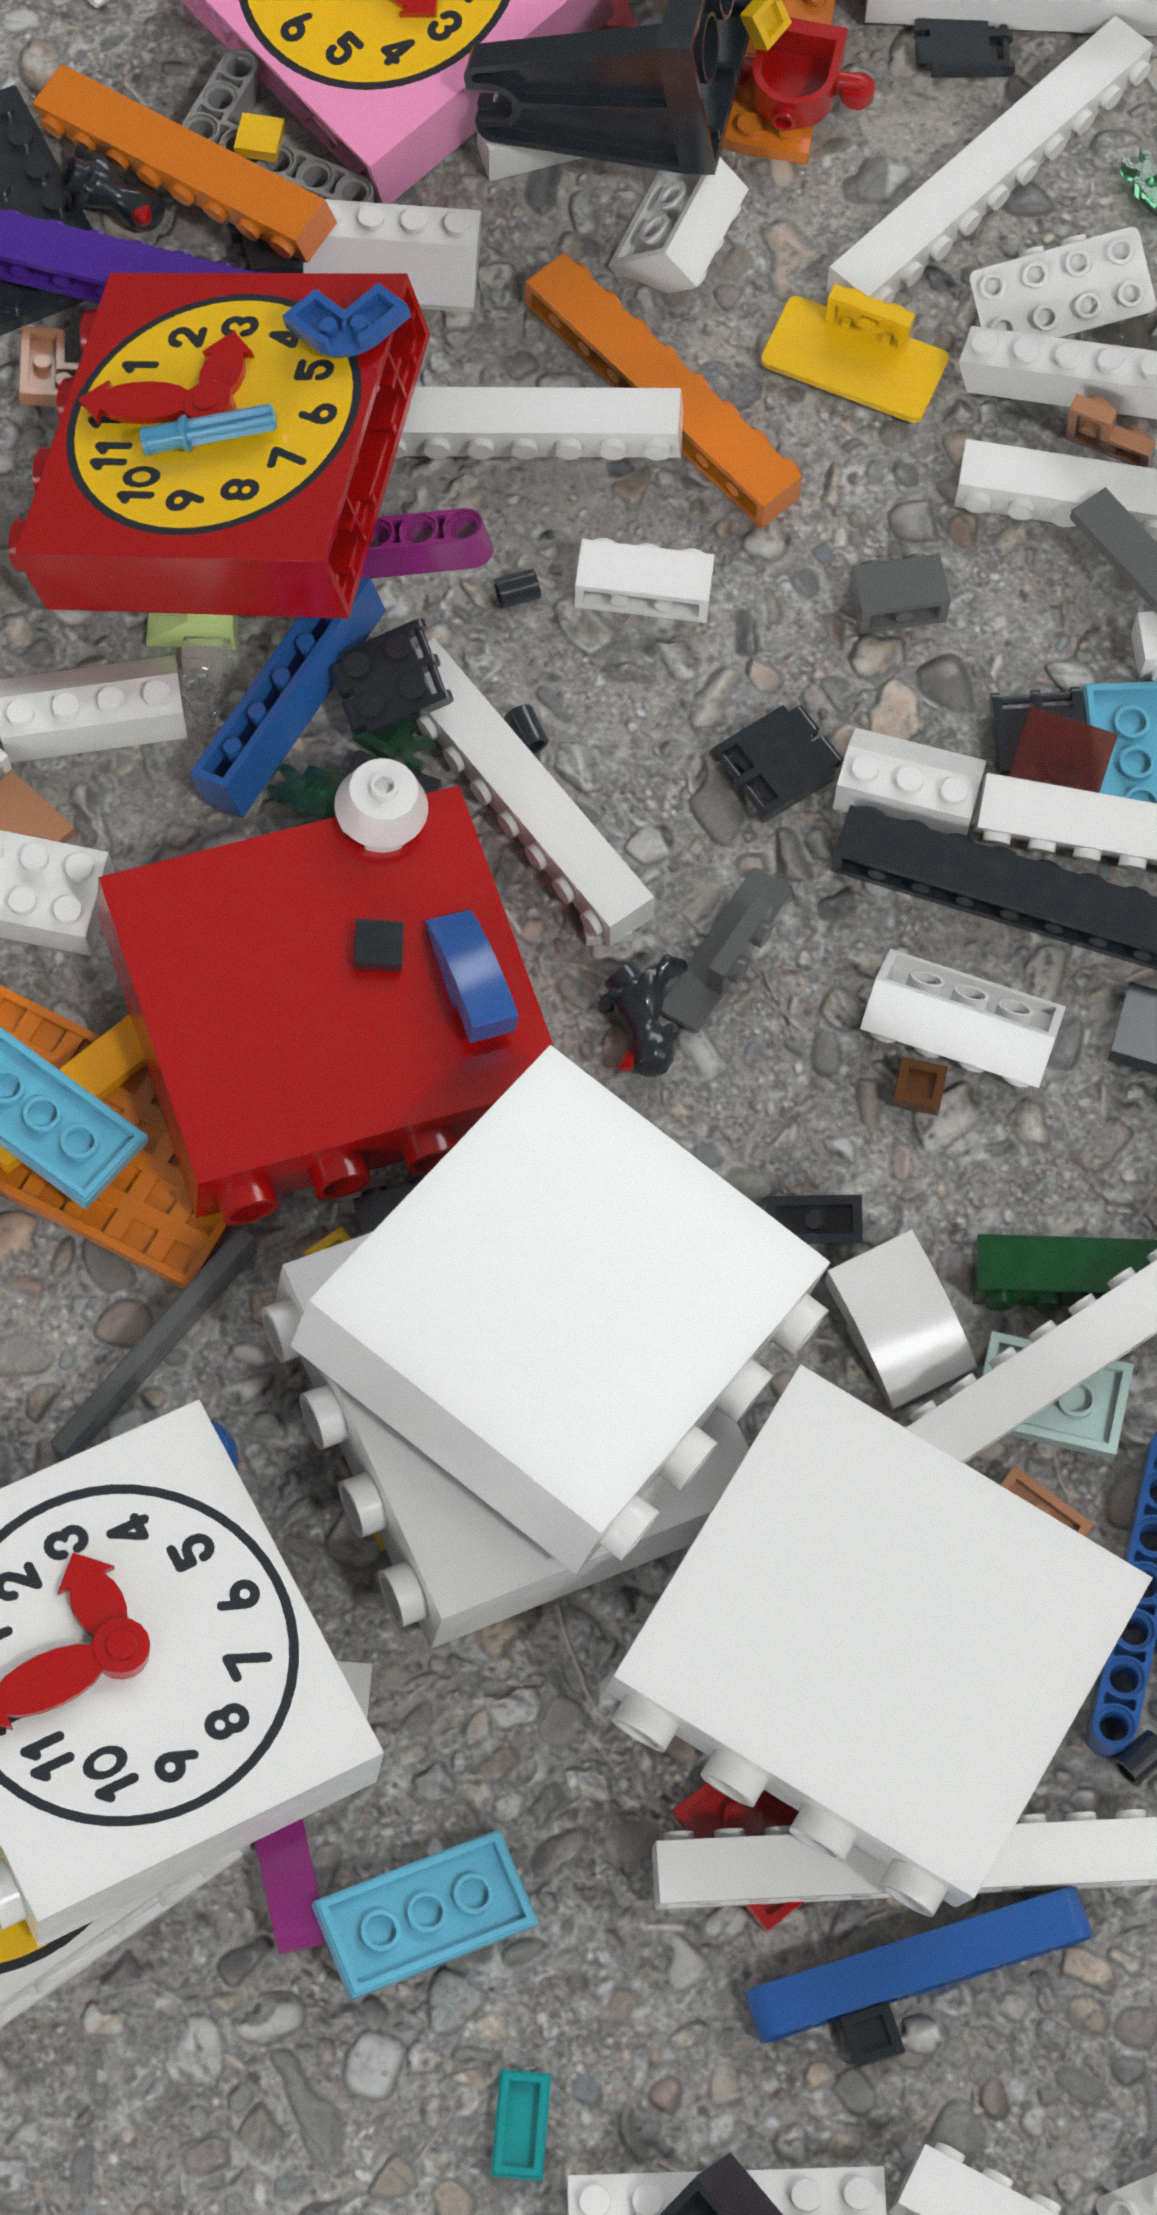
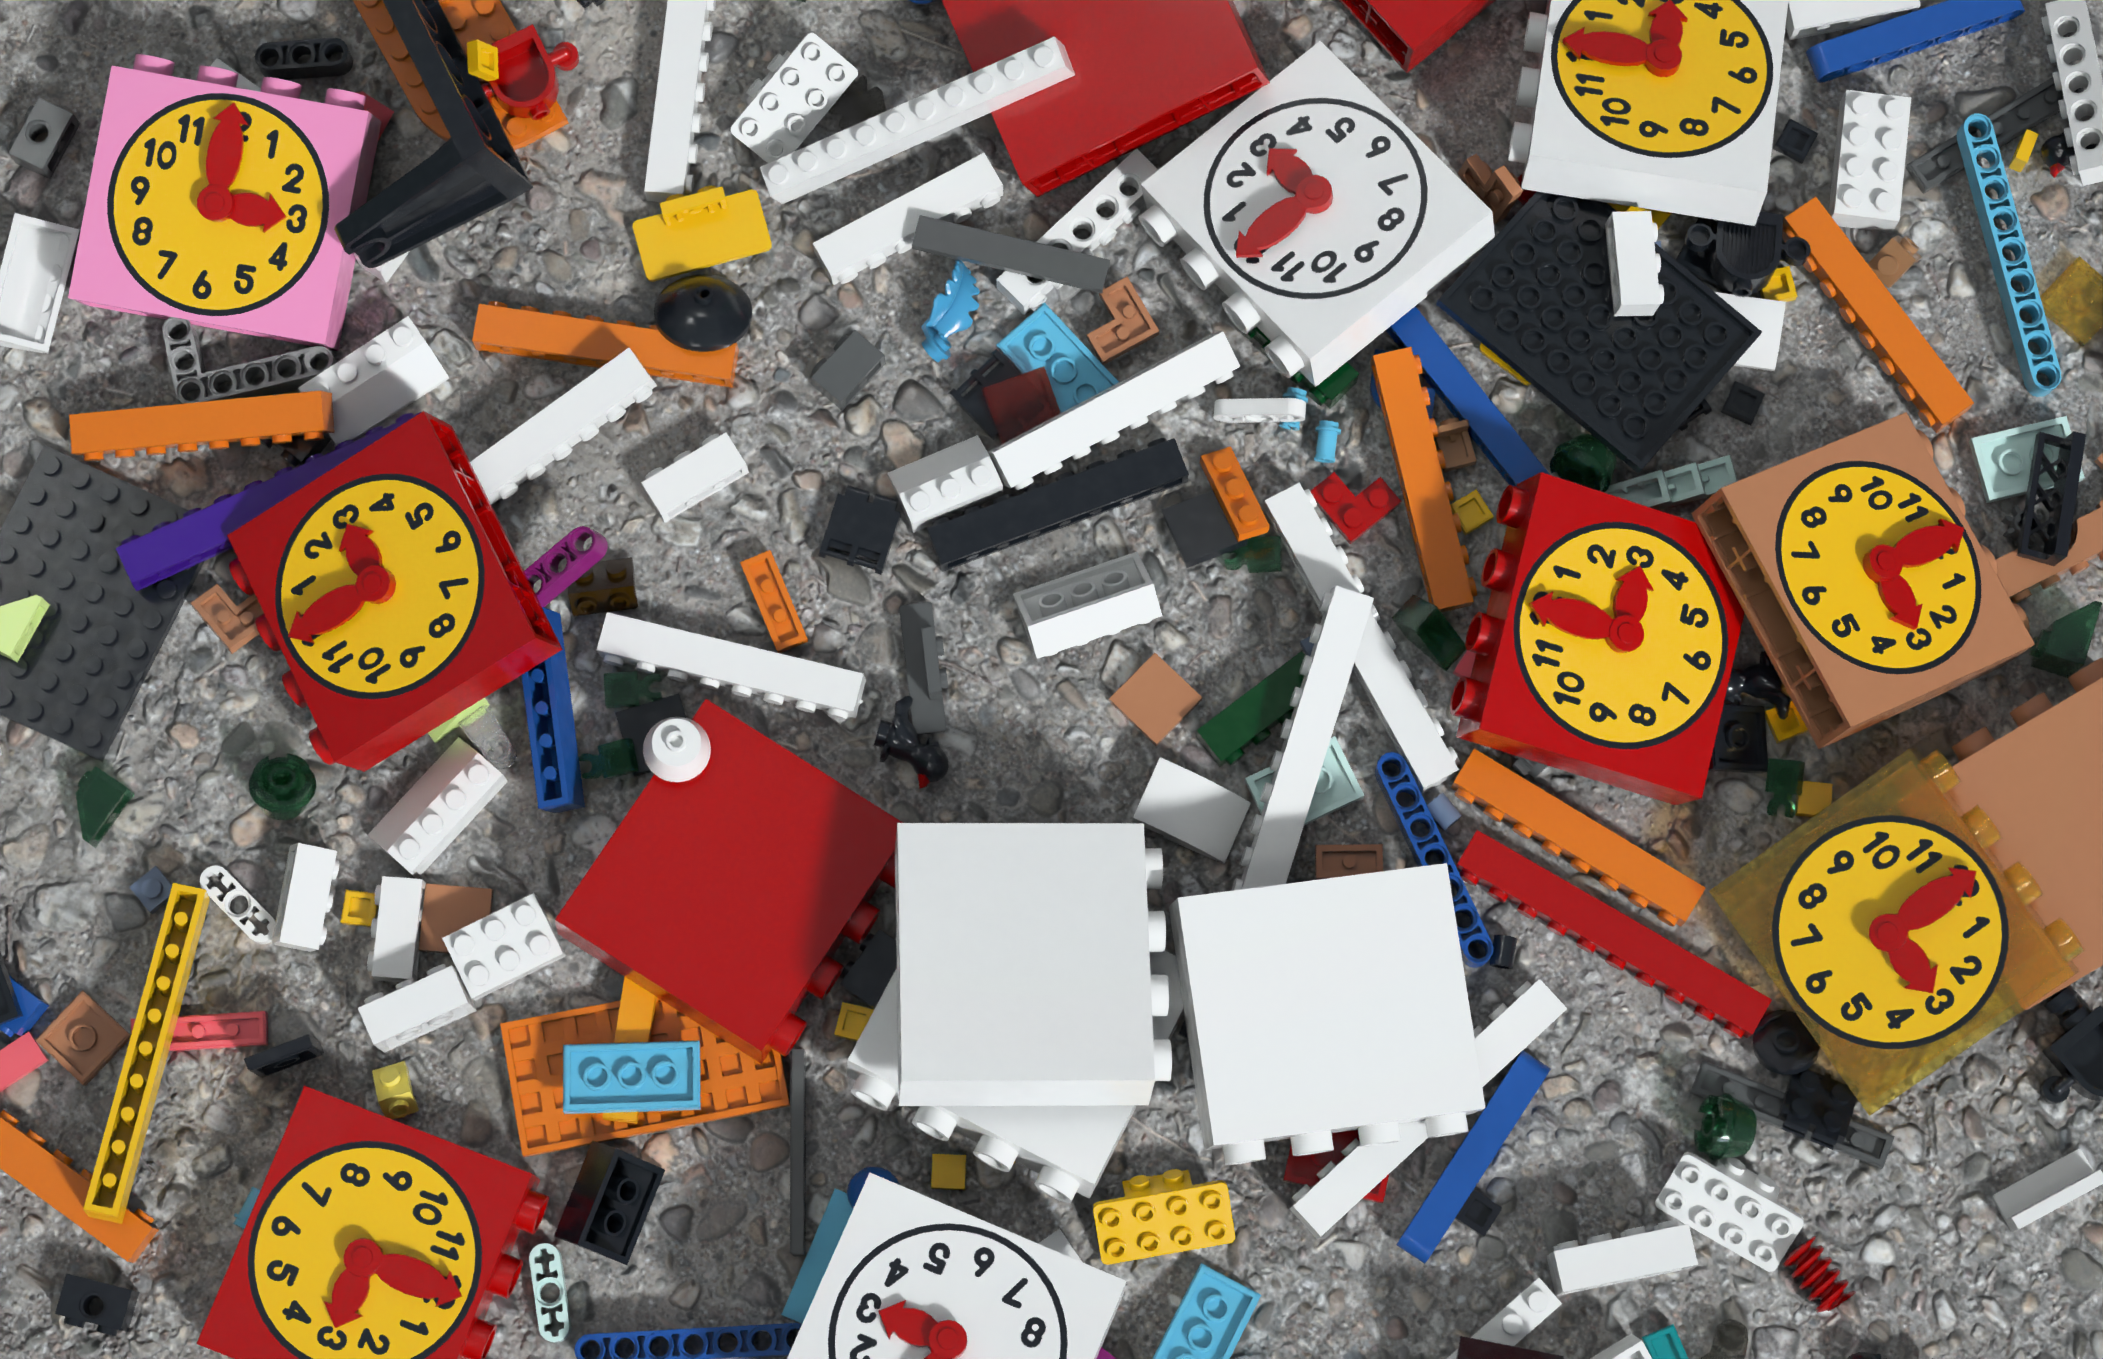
camera: 35 degrees left, 10 degrees up
(99, 185) = (158, 475): black animal -> none
(207, 429) = (390, 602): dark azure axle -> none
(259, 137) = (233, 370): yellow tile -> none
(301, 1500) = (948, 1171): none -> yellow tile
(346, 331) = (421, 480): blue plate -> none
(378, 945) = (743, 832): black tile -> none
(389, 680) = (604, 660): black plate -> none
(454, 616) = (604, 588): none -> dark brown bracket
(472, 976) = (809, 808): blue slope -> none
(497, 1742) = (1163, 1217): none -> yellow bracket
(517, 588) = (624, 539): black hinge -> none
(527, 727) = (701, 623): black hinge -> none
(622, 763) = (774, 601): none -> orange plate
(679, 228) = (531, 233): white slope -> none
(791, 426) = (703, 312): none -> black dish
(820, 1217) = (1101, 791): black brick -> none
(919, 1086) = (1094, 665): reddish brown plate -> none
(959, 1174) = (1155, 699): none -> nougat tile
(1060, 614) = (950, 312): none -> dark azure plant
(1093, 426) = (879, 174): nougat plate -> none

